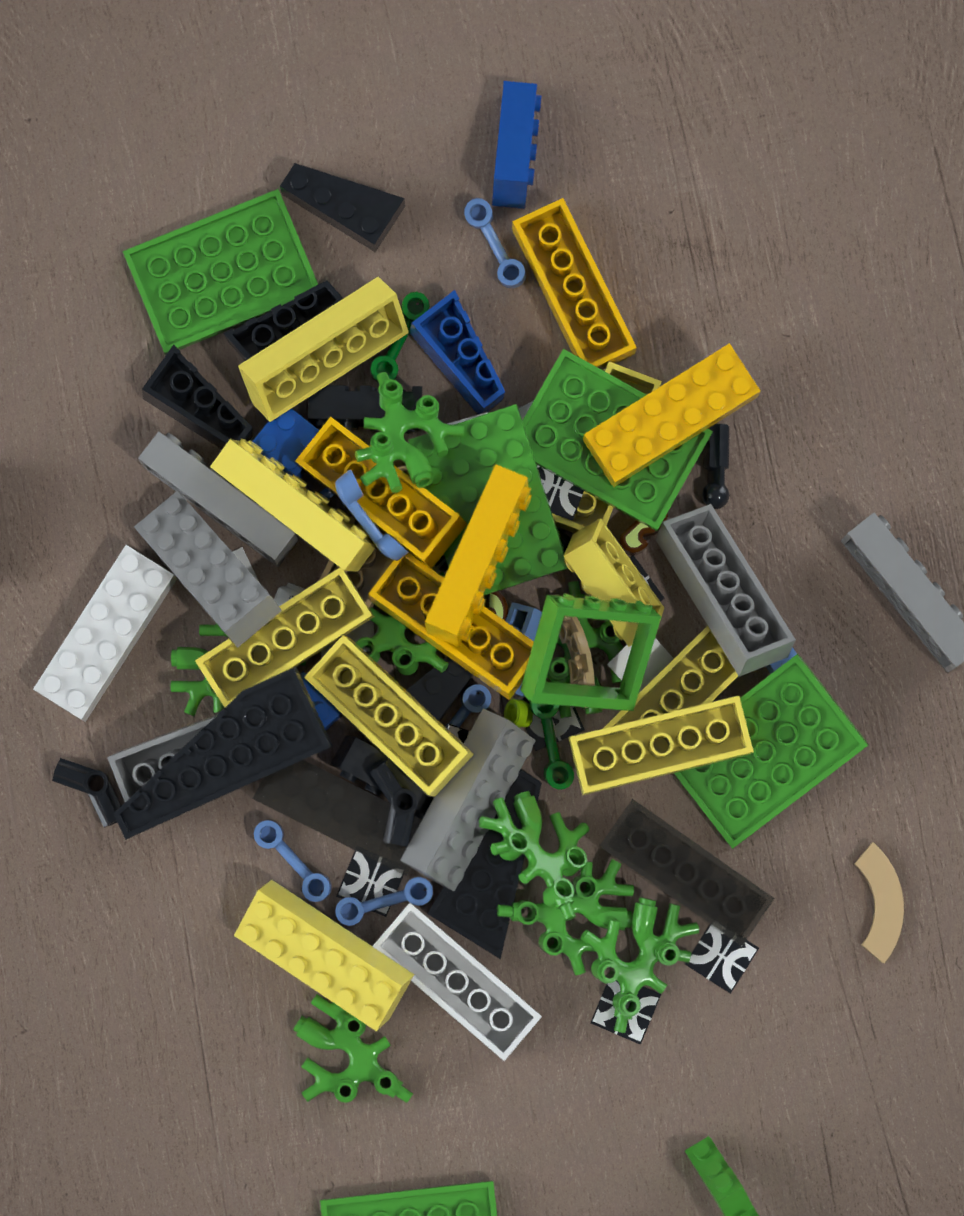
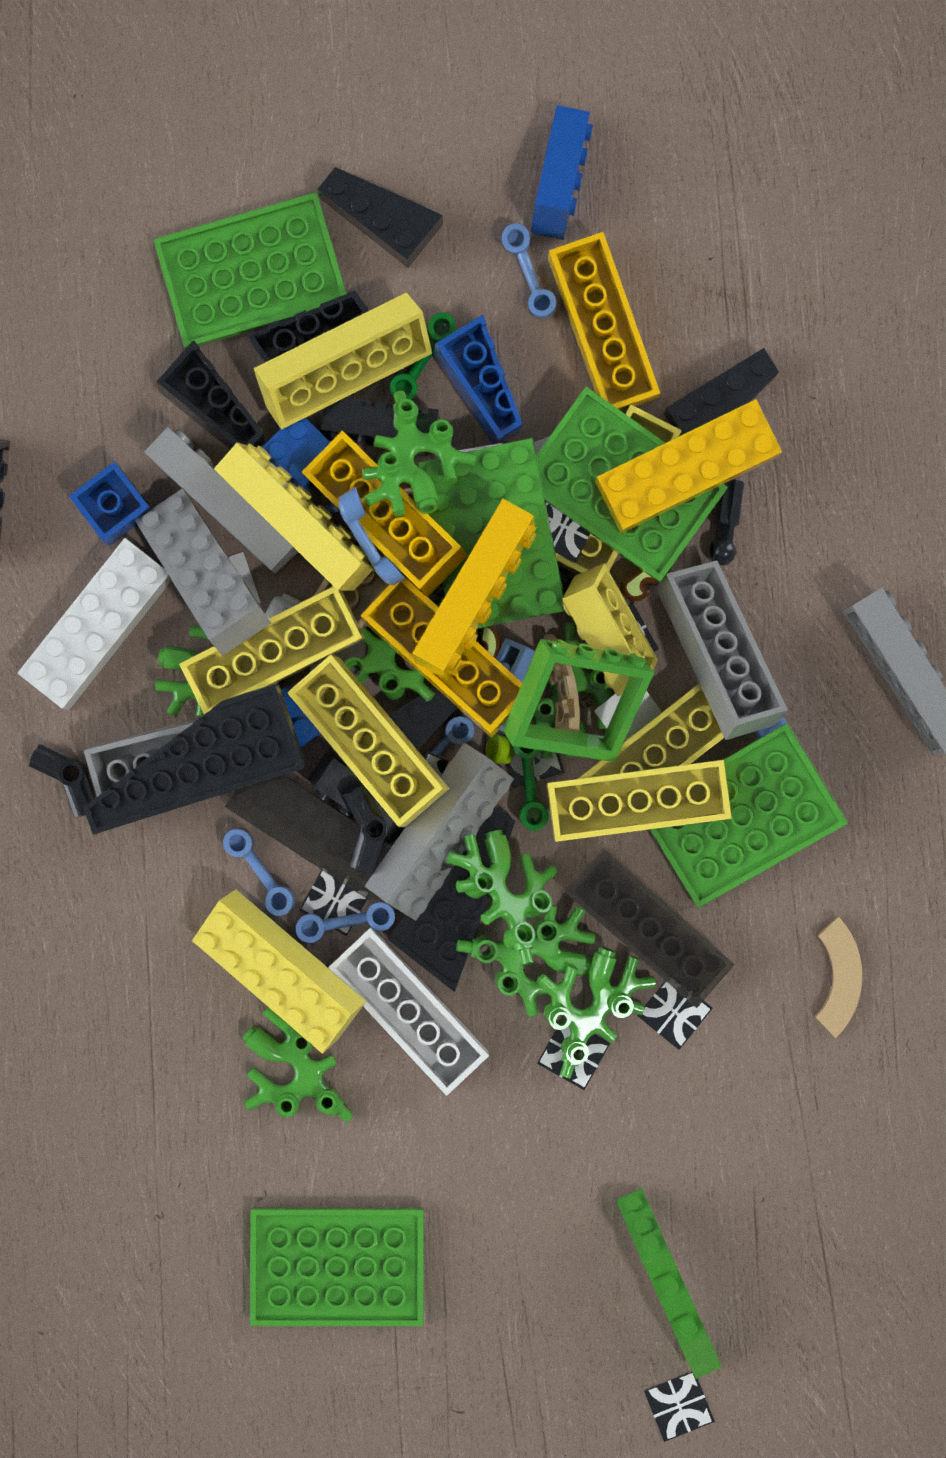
camera: 15 degrees right, 5 degrees up
(108, 512) = (110, 503): none -> blue brick
(698, 340) = (723, 393): none -> black wedge

